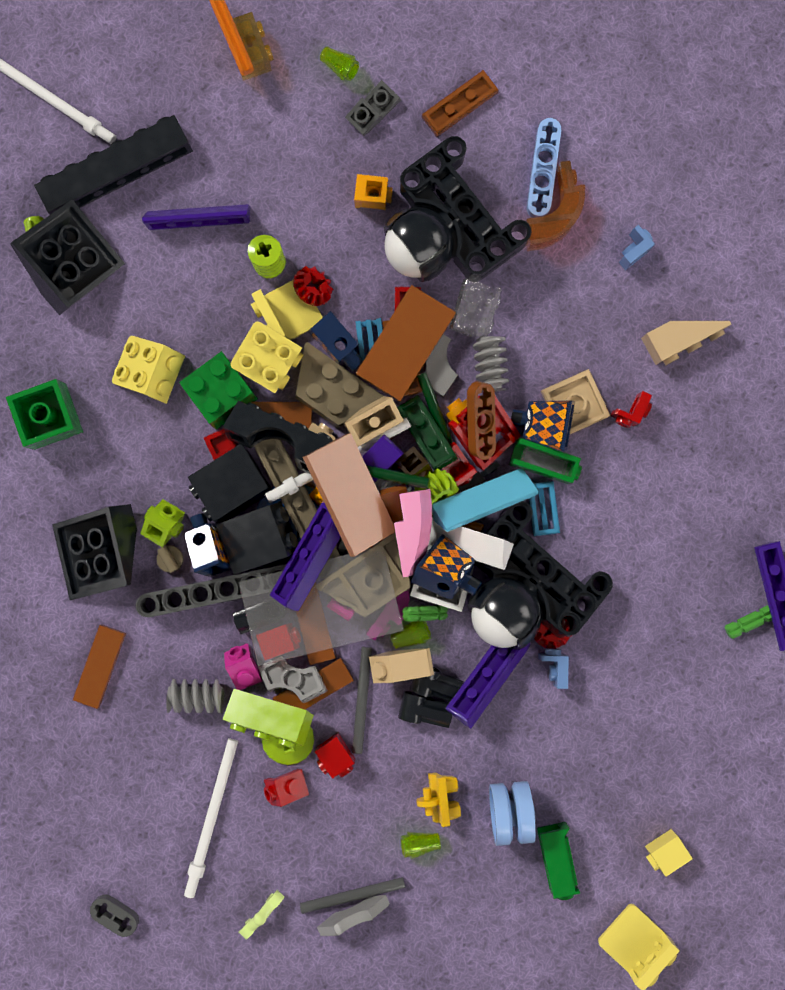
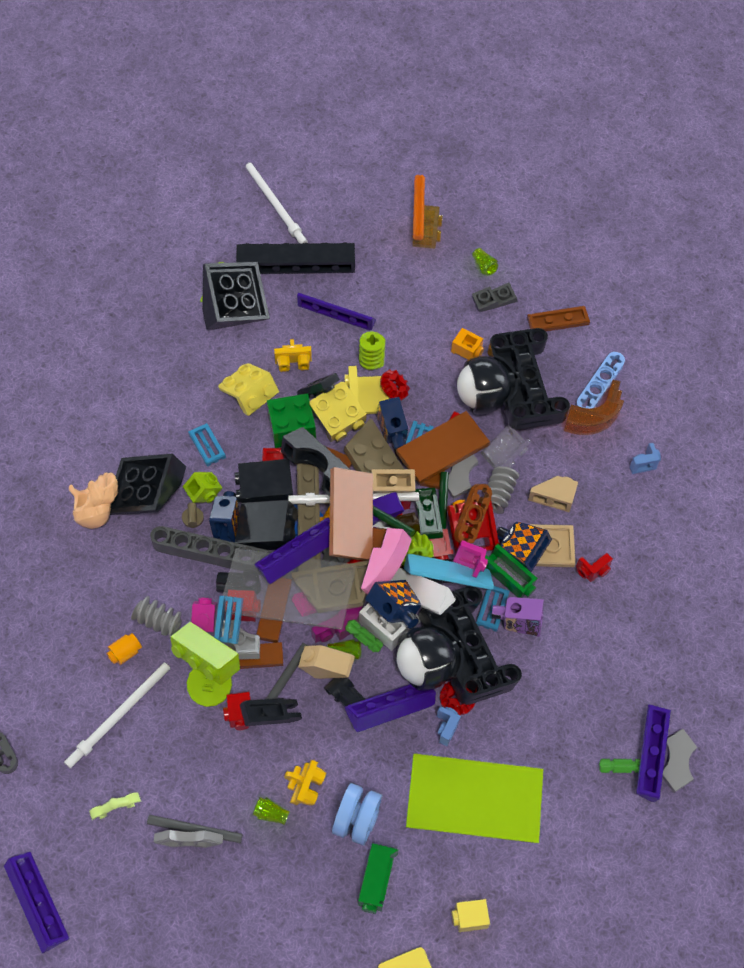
camera: 25 degrees right, 25 degrees down
(44, 414) = (160, 382): green brick -> none
(52, 598) = (94, 503): none -> light nougat hair
(99, 666) = (98, 567): dark orange tile -> none
(156, 475) = (214, 458): none -> dark azure tile
(176, 299) = (293, 354): none -> yellow hips
(178, 748) = (123, 649): none -> light orange brick
(230, 336) = (320, 385): none -> black hinge
(280, 690) = (220, 617): none -> dark azure tile
(285, 788) = (188, 717): red bracket -> none
(368, 749) = (269, 711): none -> black hinge
(420, 709) = (324, 707): black piece -> none
(502, 469) = (472, 557): none -> dark pink bracket
(556, 338) = (555, 493): none -> tan slope
(592, 508) = (521, 615): none -> medium lavender torso
(615, 725) = (475, 798): none -> lime piece
(676, 336) = (650, 531): tan slope -> none

